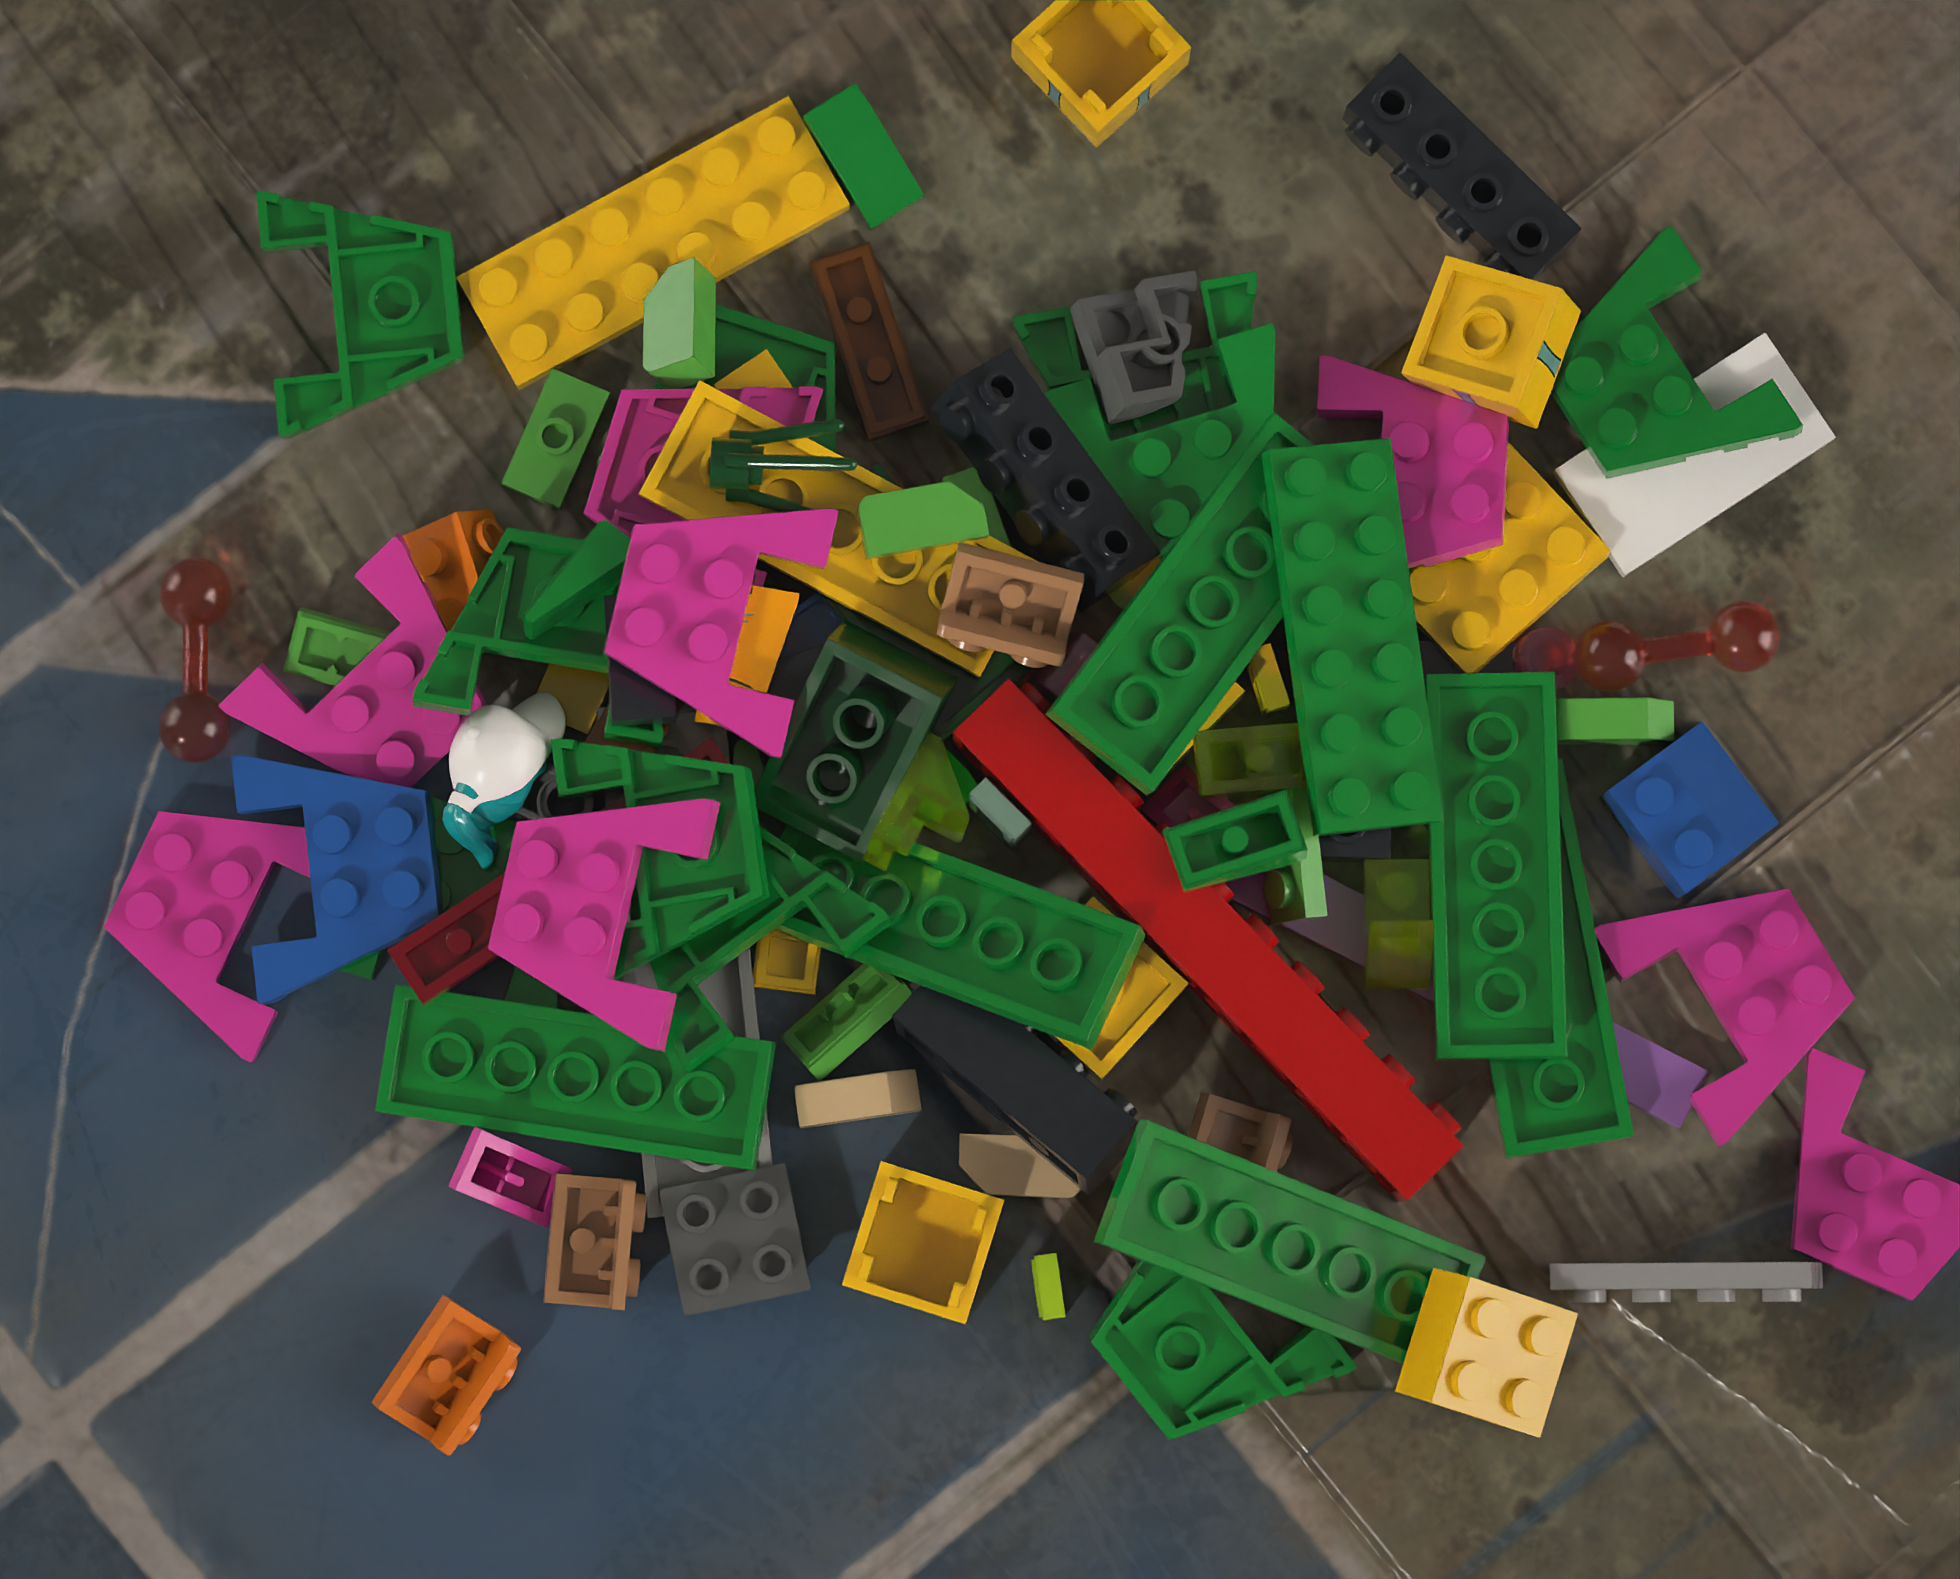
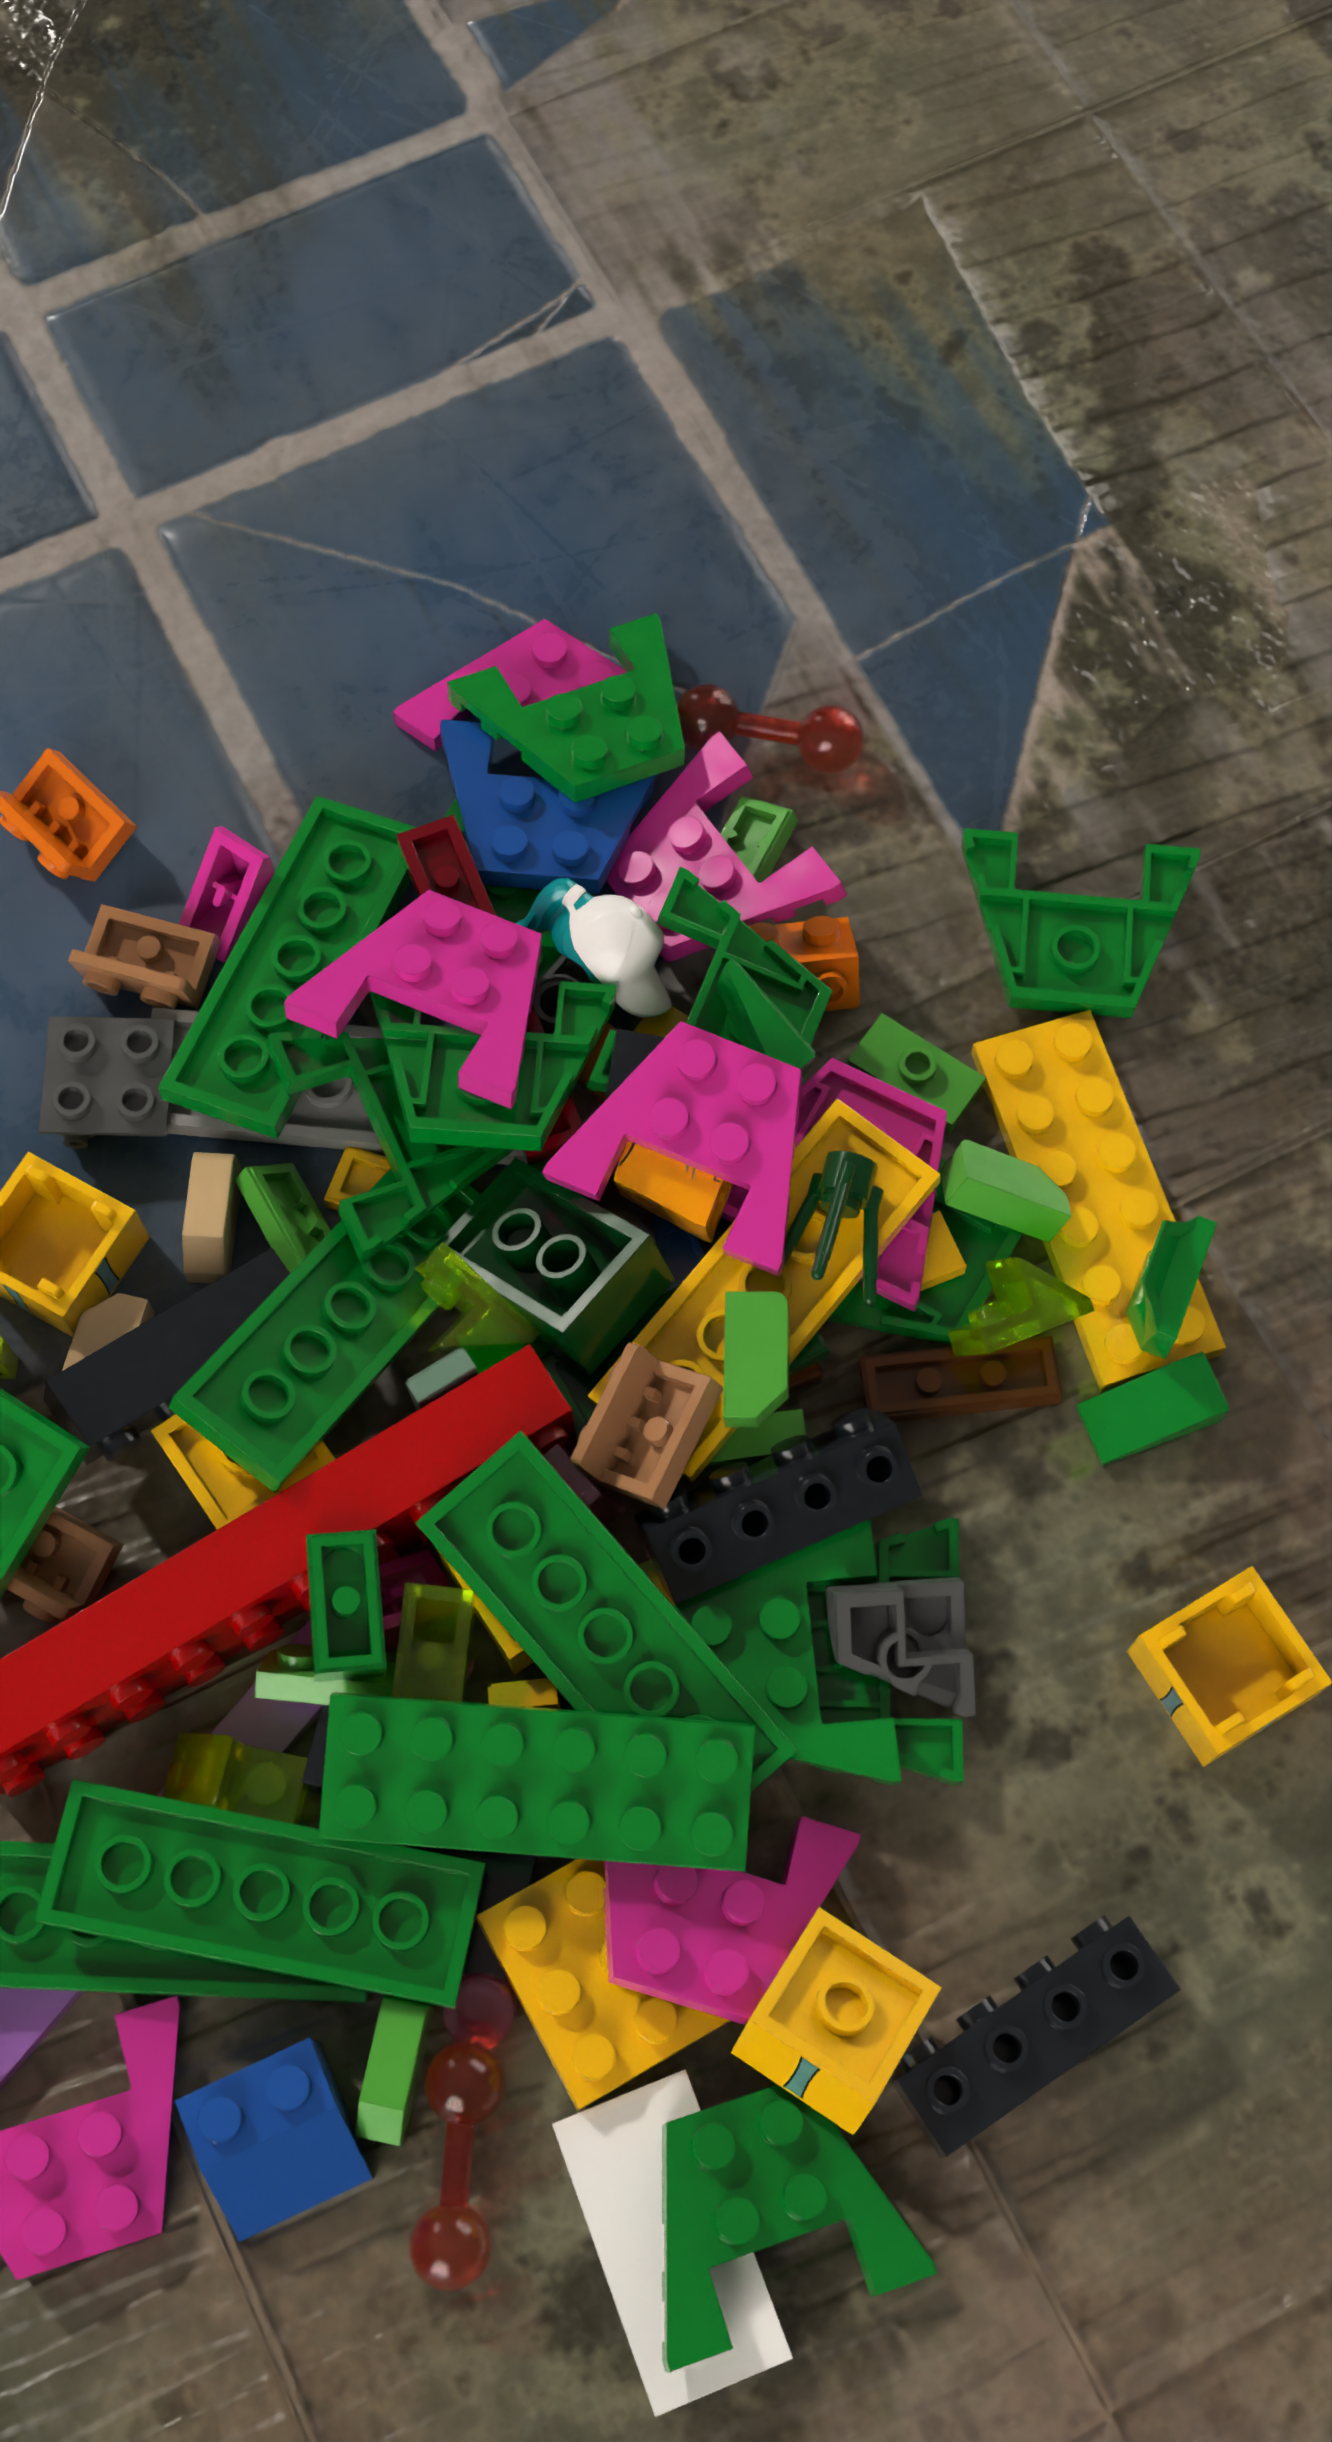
camera: 105 degrees right, 15 degrees down
(250, 828) = (596, 733): none -> green wing
(749, 154) = (1168, 1283): none -> green slope
(804, 286) = (1025, 1306): none -> clear neon green slope

